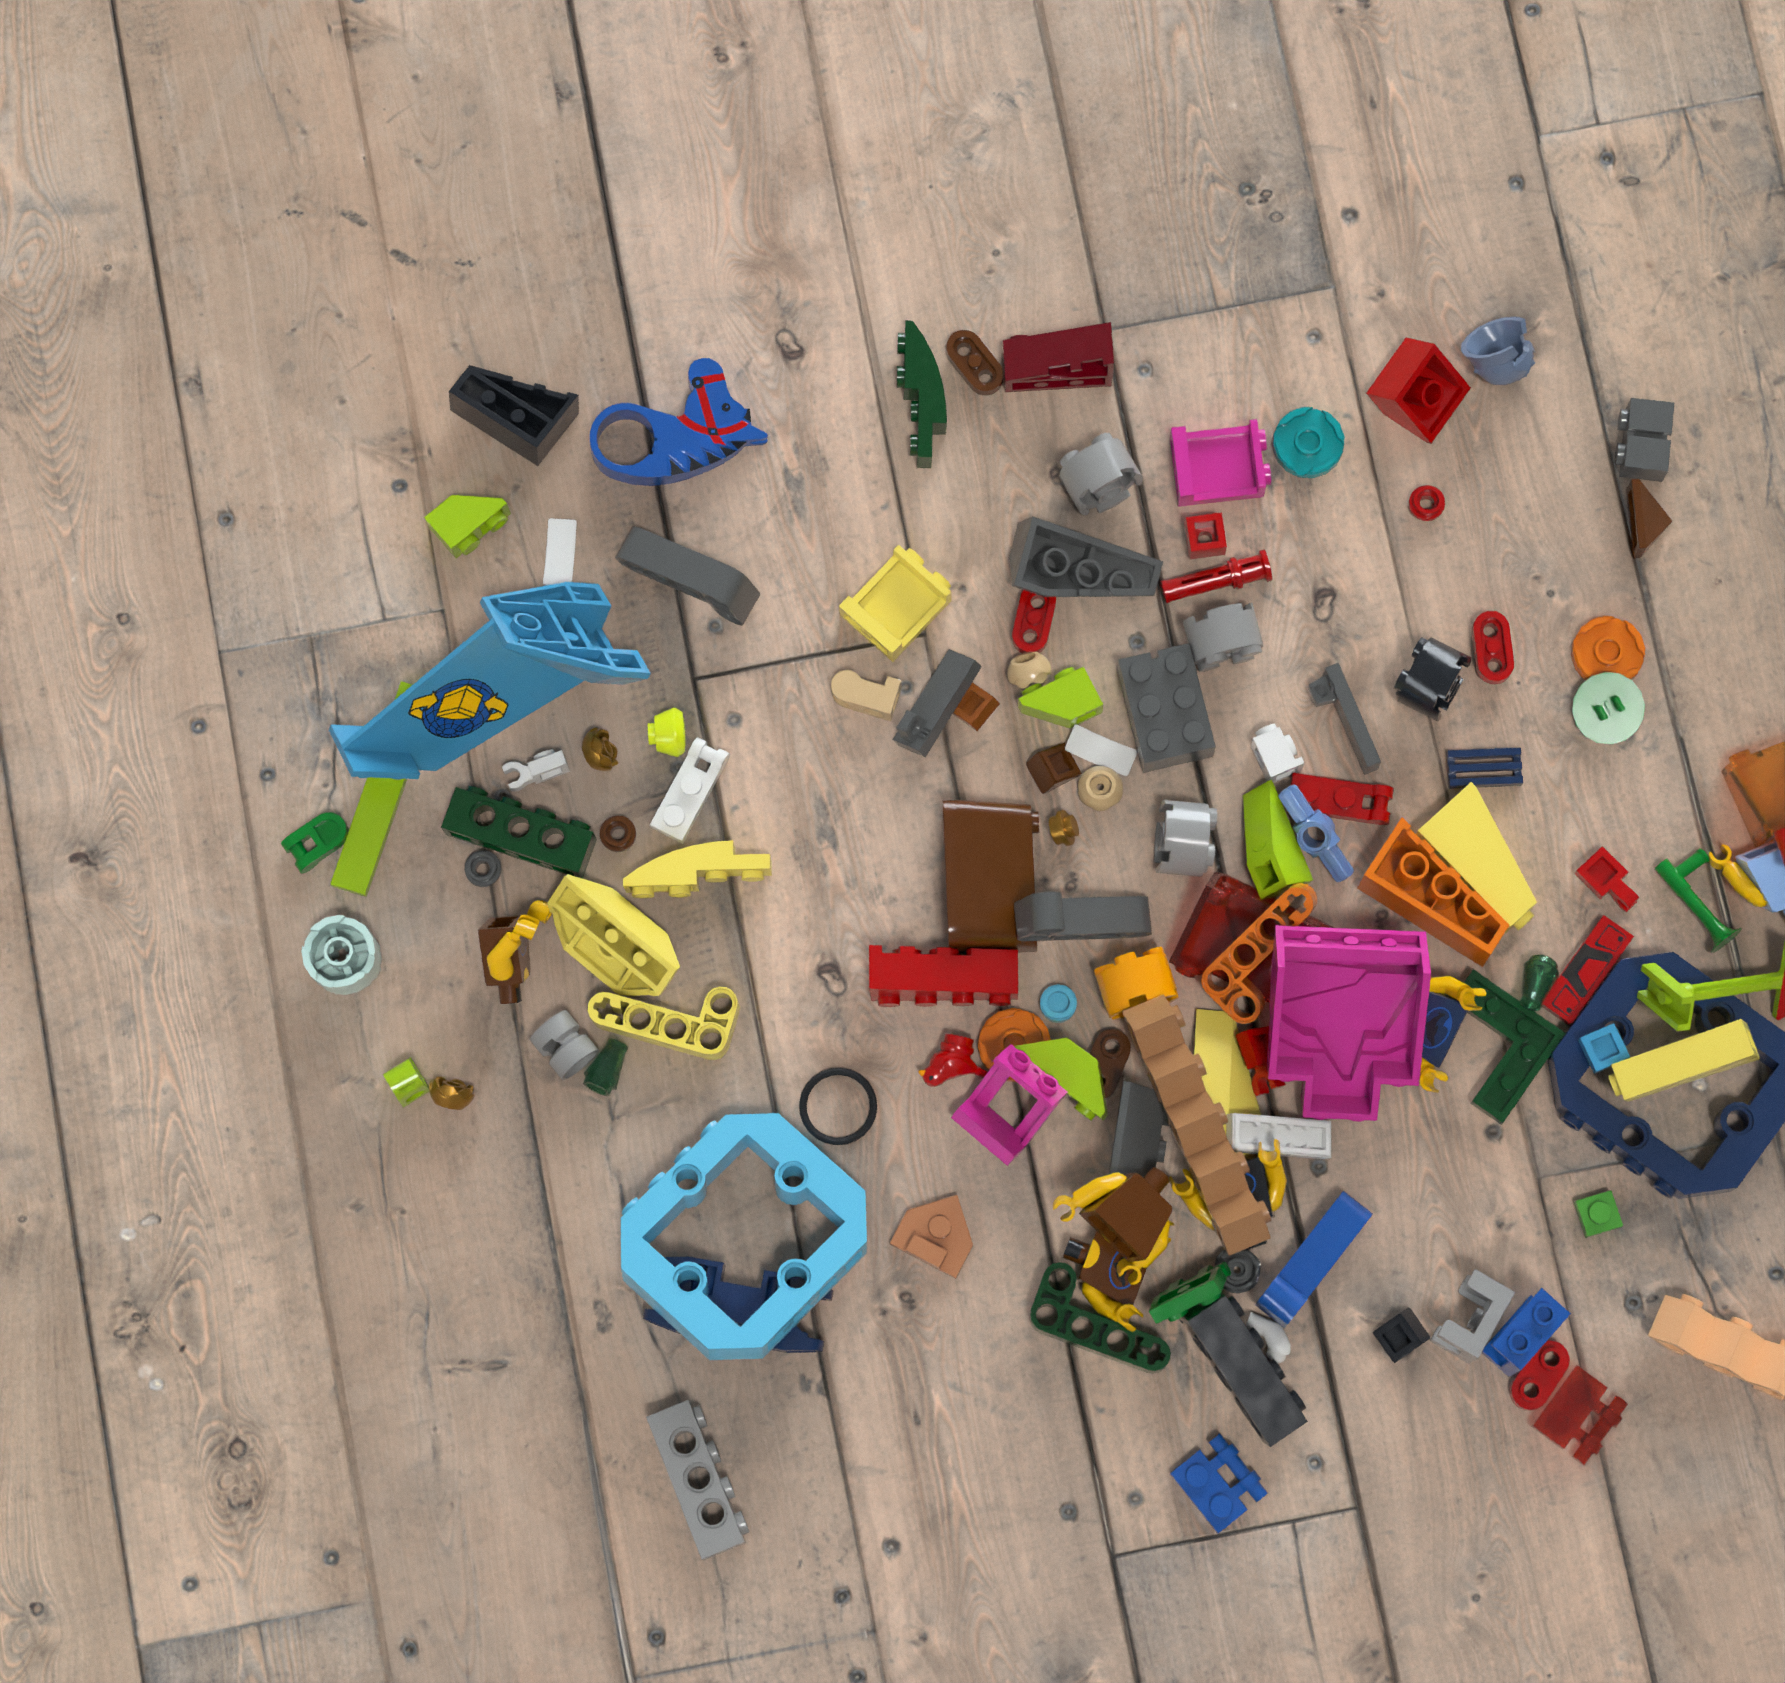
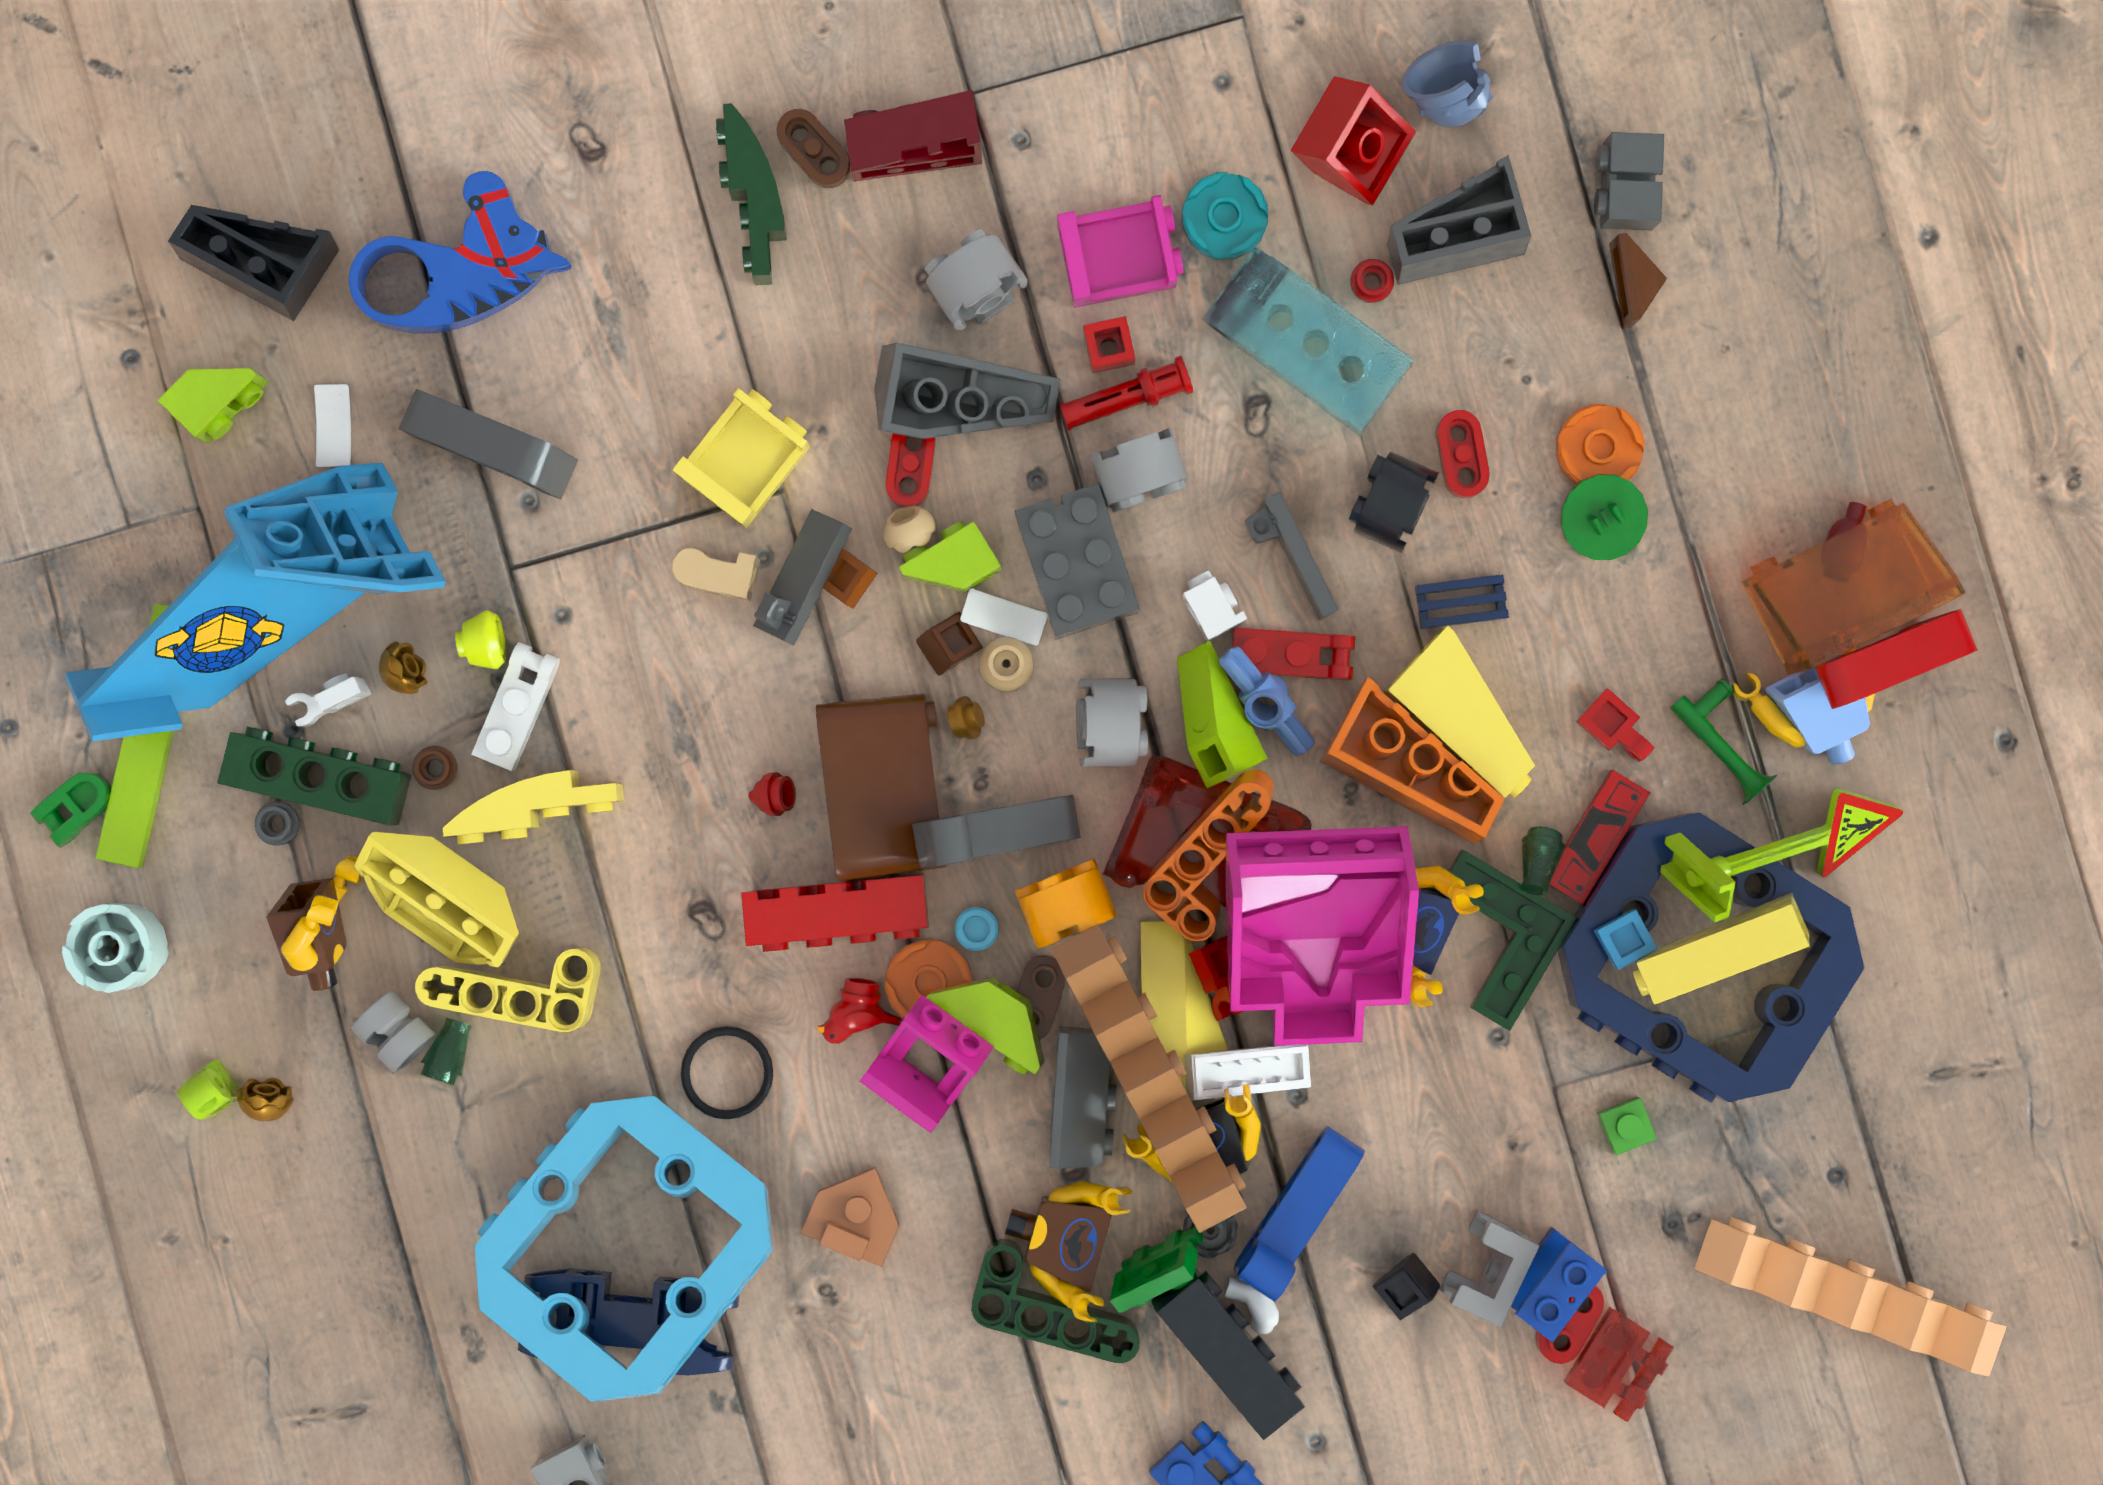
camera: 10 degrees left, 10 degrees up
(897, 877) = (773, 794): none -> red plate
(1127, 1215) = (1073, 1195): reddish brown torso -> none
(1342, 500) = (1268, 287): none -> clear light blue hinge
(1503, 466) = (1462, 230): none -> dark grey wedge

